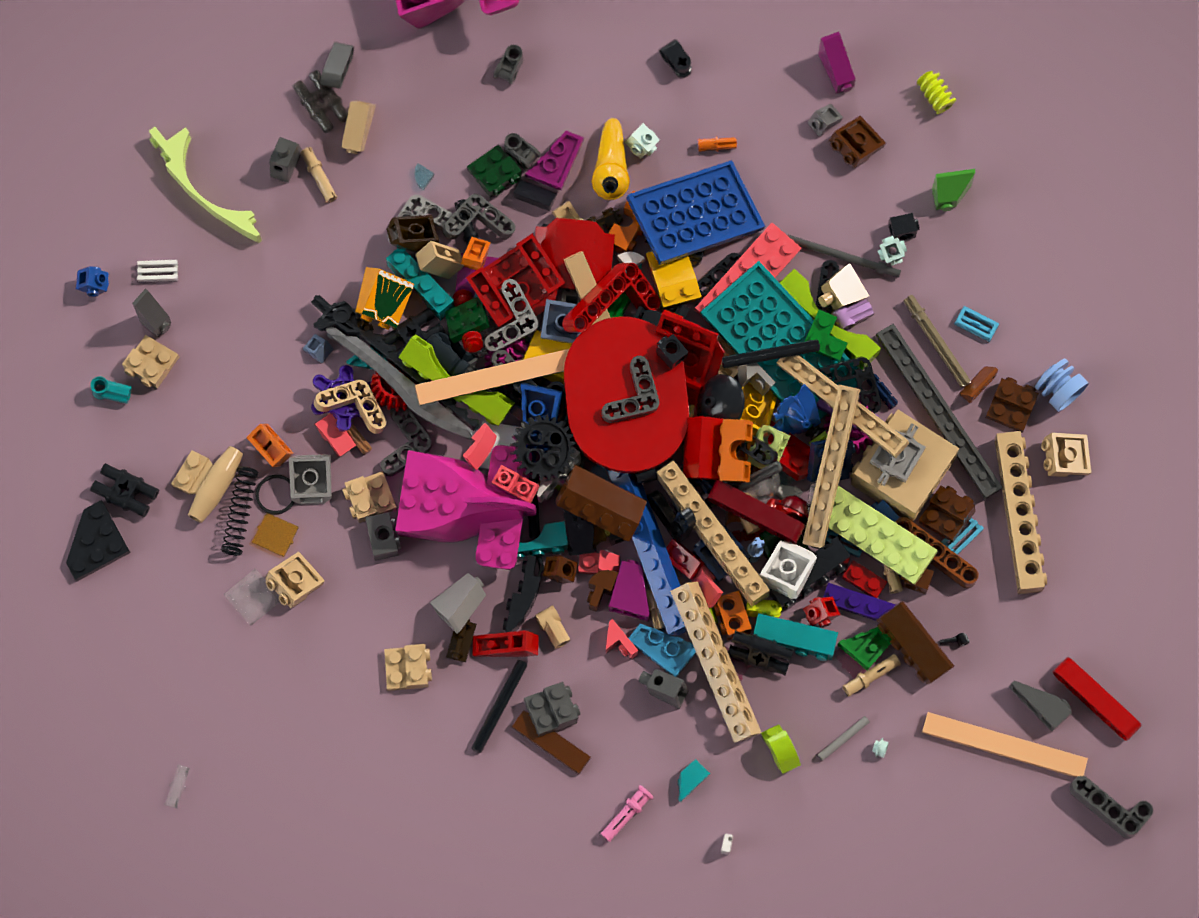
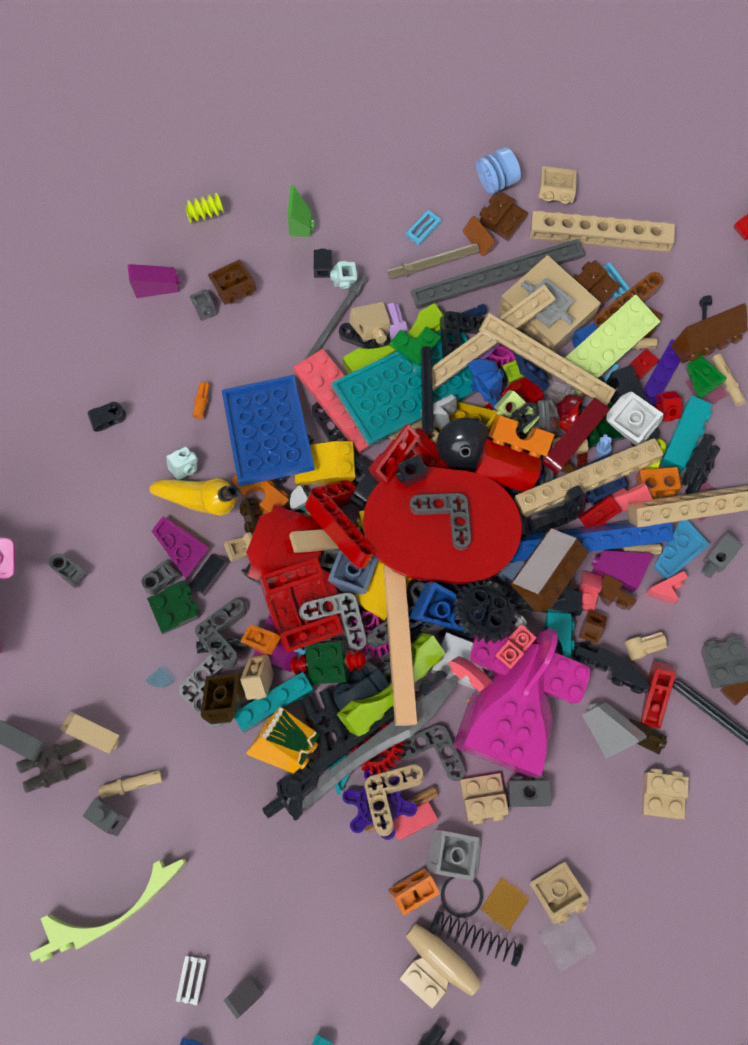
camera: 80 degrees left, 0 degrees up
(150, 362) = (292, 1007): tan plate -> none
(318, 348) = (315, 821): sand blue slope -> none

